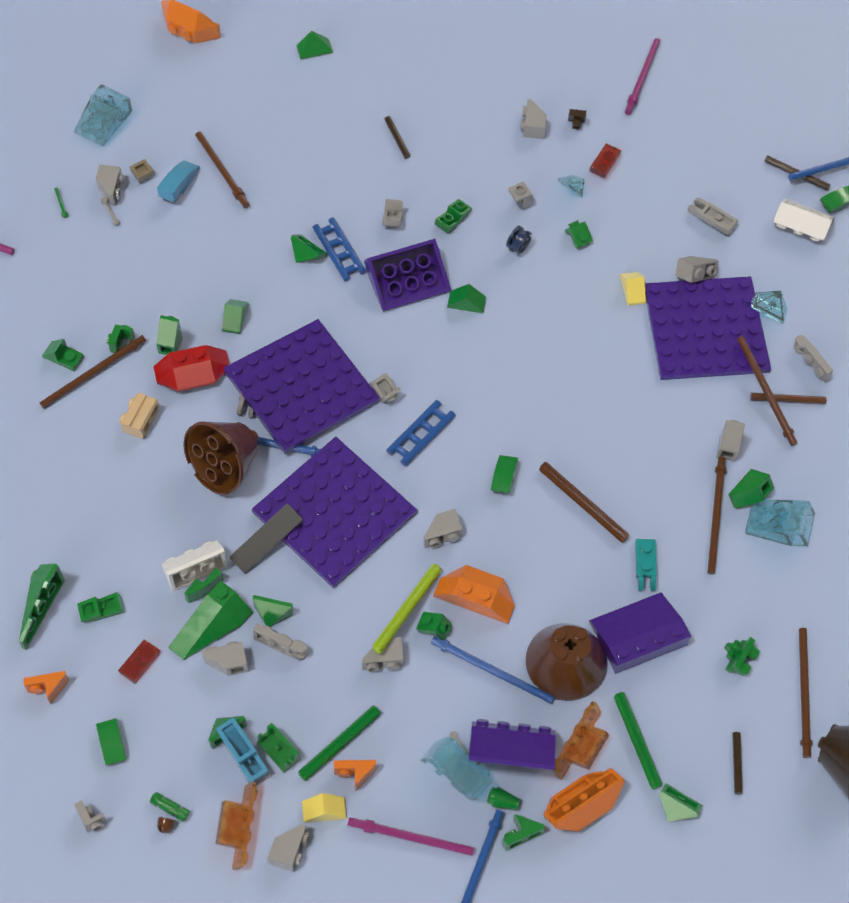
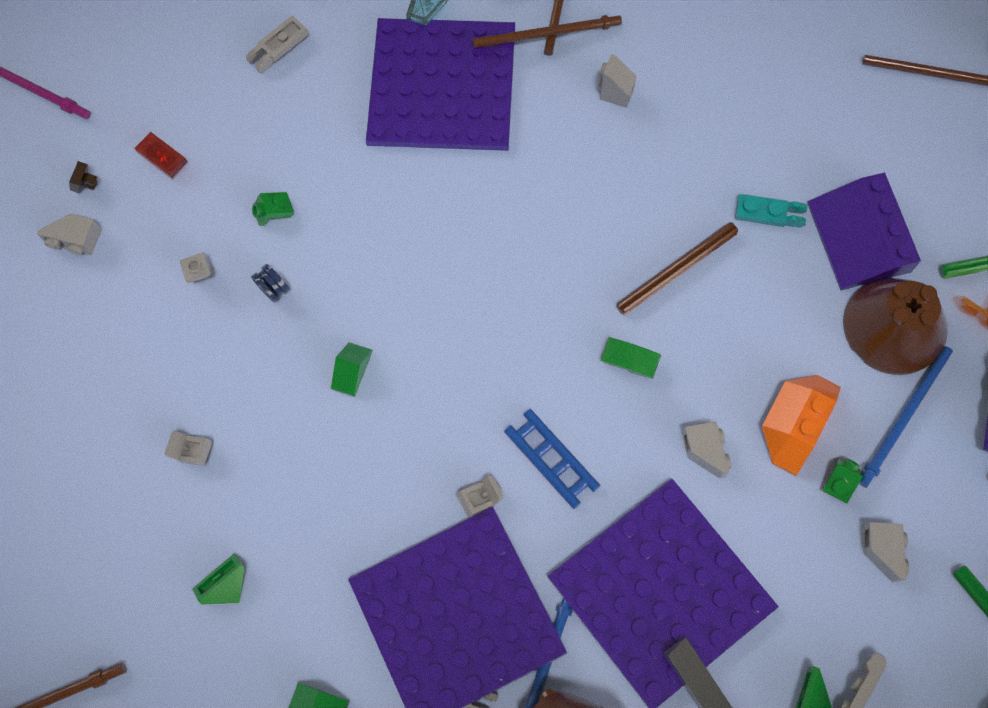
camera: 75 degrees left, 10 degrees up
(336, 258) = (222, 550): blue bar -> none
(397, 137) = (50, 426): dark brown bar -> none
(406, 608) = (828, 511): lime axle -> none
(407, 274) = (296, 442): dark purple slope -> none
(453, 216) = (207, 366): green slope -> none
(574, 183) = (189, 199): clear light blue slope -> none
(634, 288) = (367, 155): light yellow slope -> none
(696, 268) = (358, 75): light grey slope -> none
(720, 470) = (711, 121): reddish brown bar -> none
(737, 654) = (899, 127): green hips -> none
(751, 489) = (683, 72): green slope -> none
(781, 521) = (726, 52): clear light blue slope -> none

